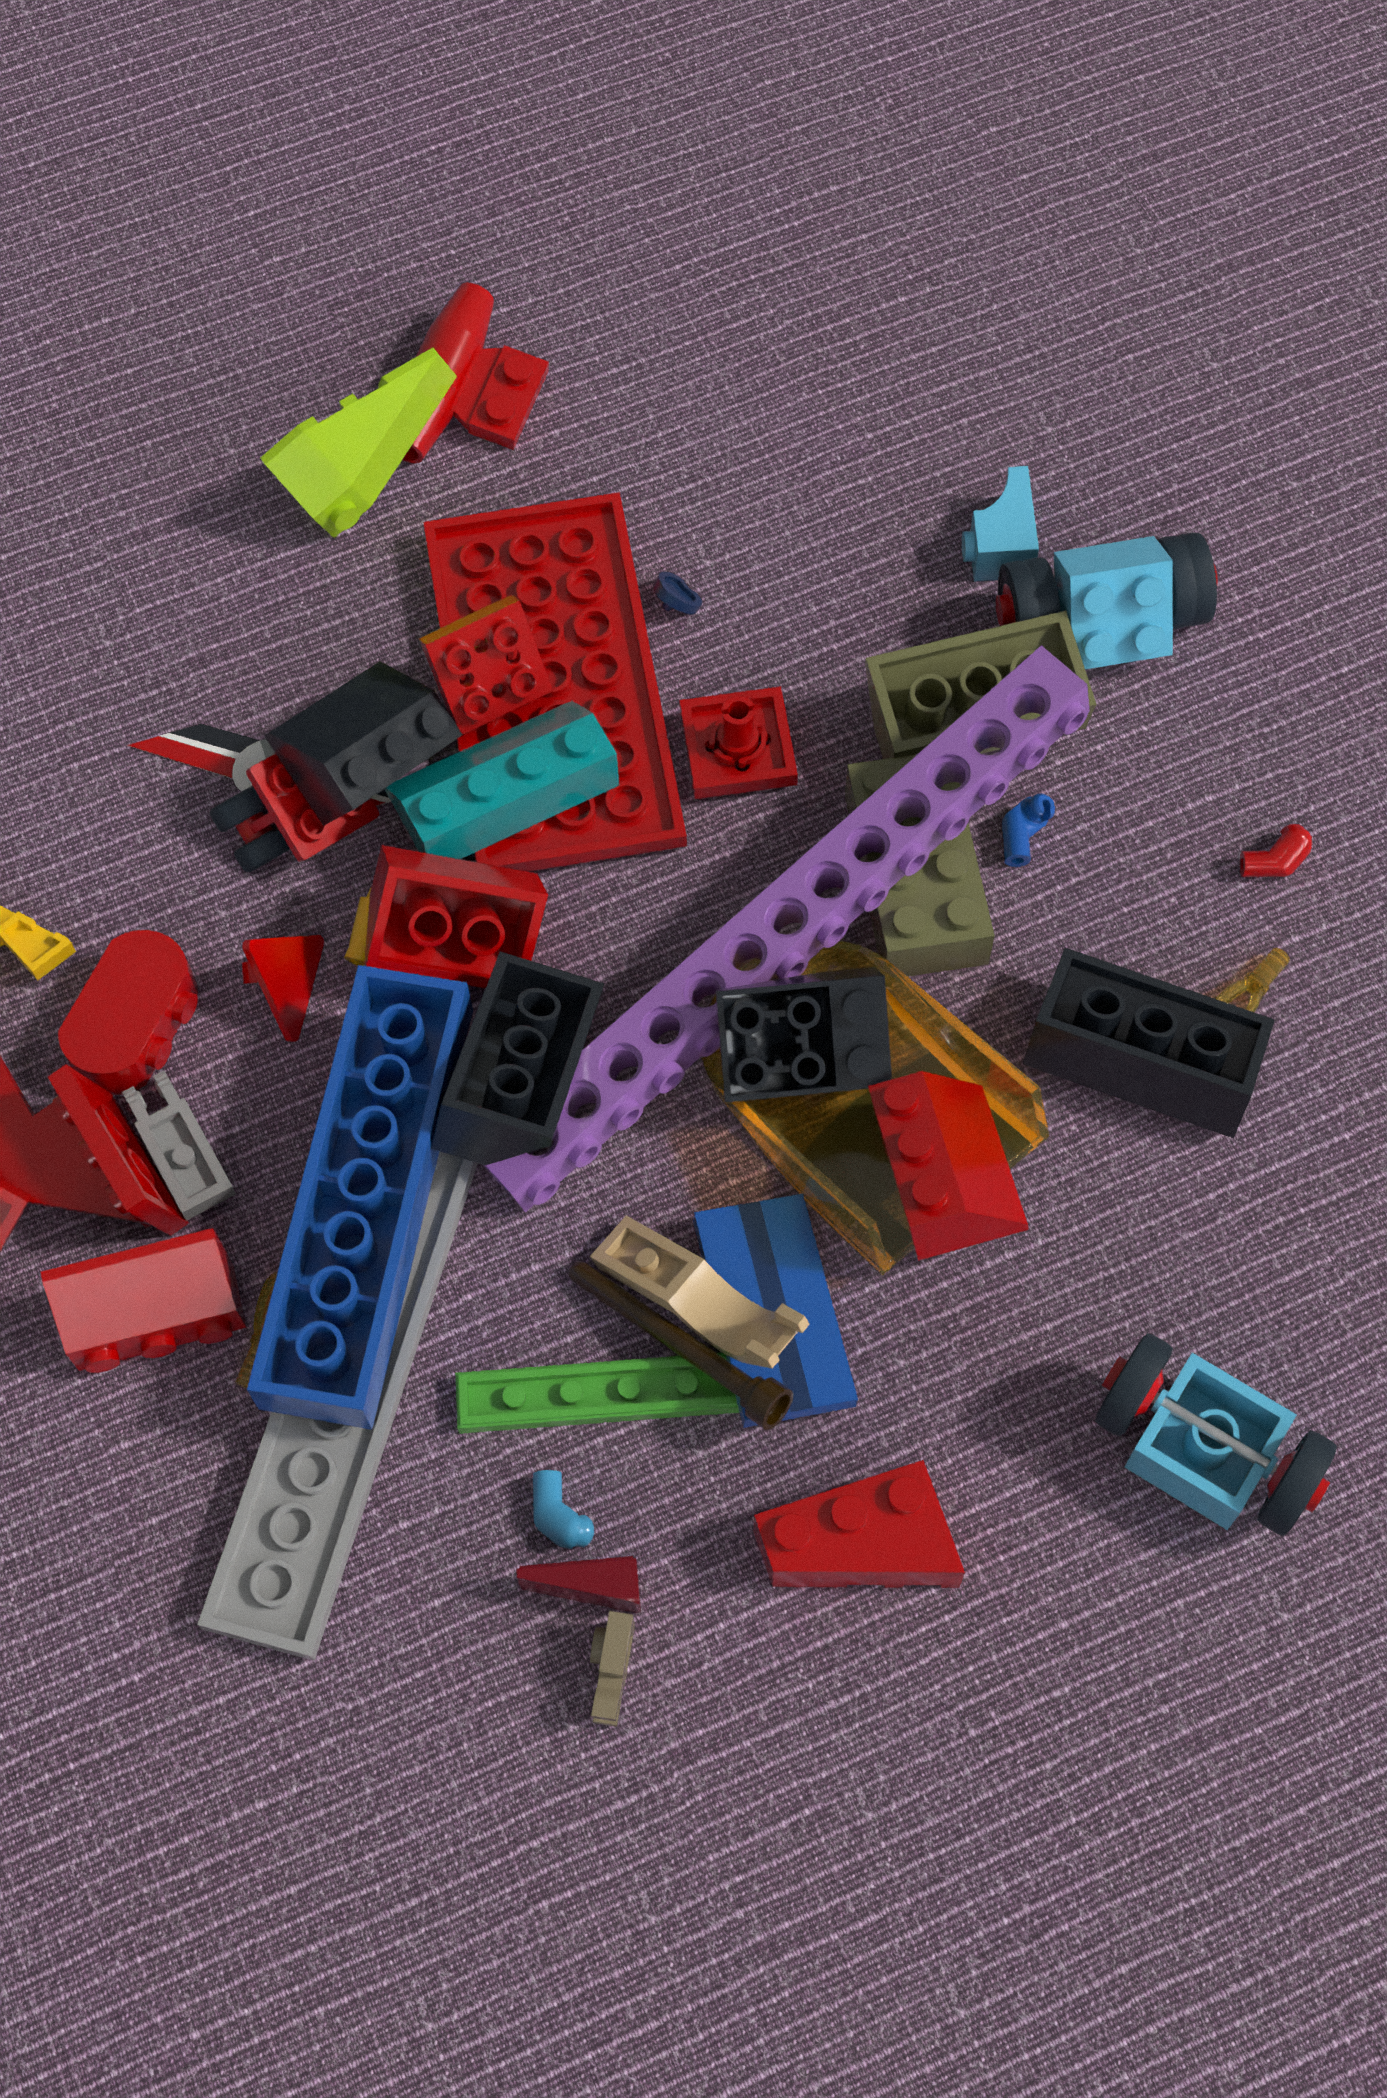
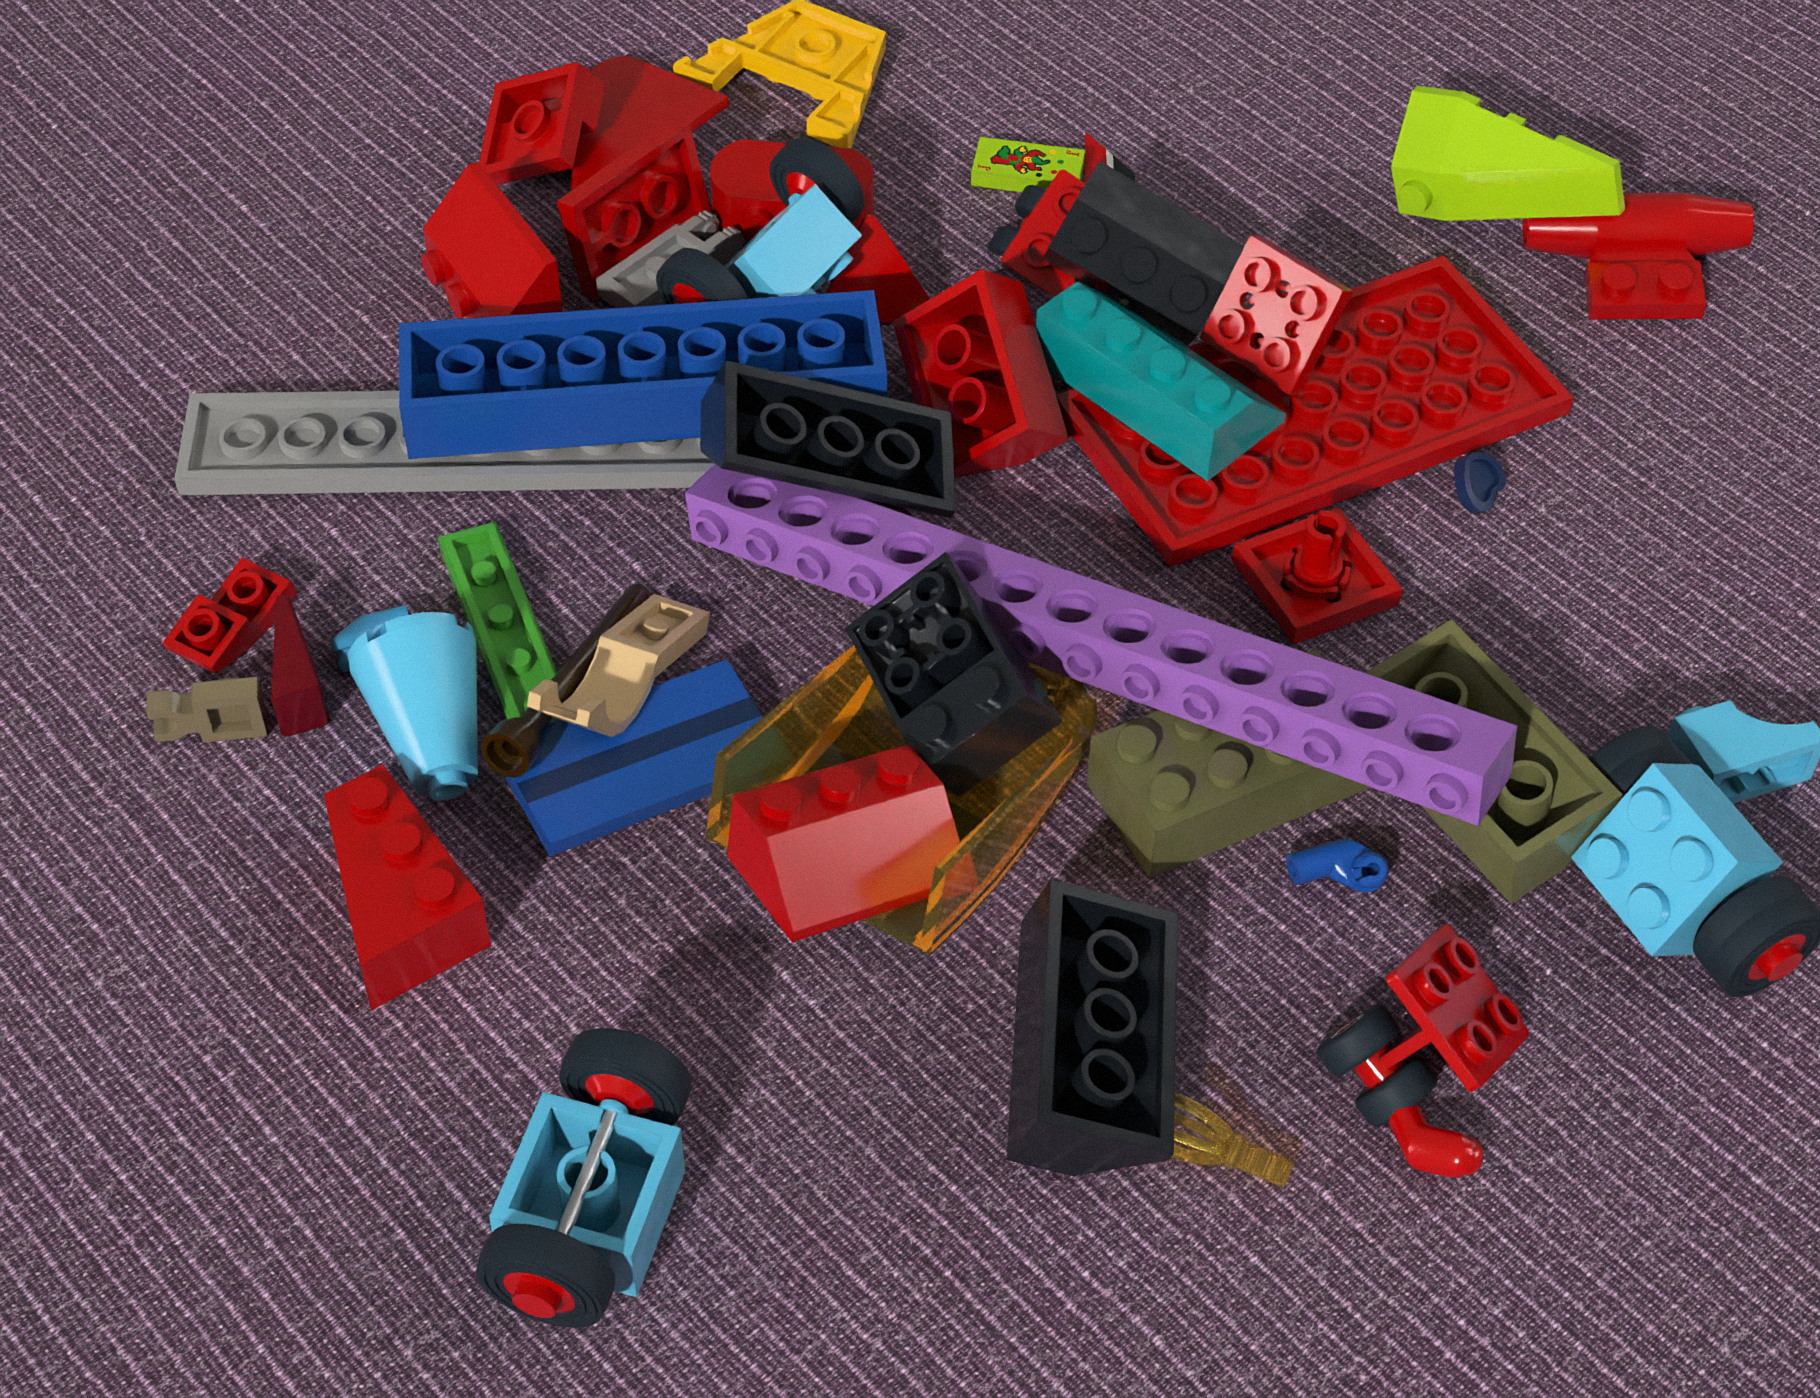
camera: 70 degrees right, 15 degrees down
(164, 806) = (1018, 164): none -> lime tile
(248, 1037) = (794, 249): none -> brick
(493, 1634) = (231, 622): none -> red slope
(676, 1471) = (424, 698): none -> medium azure cone
(1207, 803) = (1454, 1010): none -> red plate

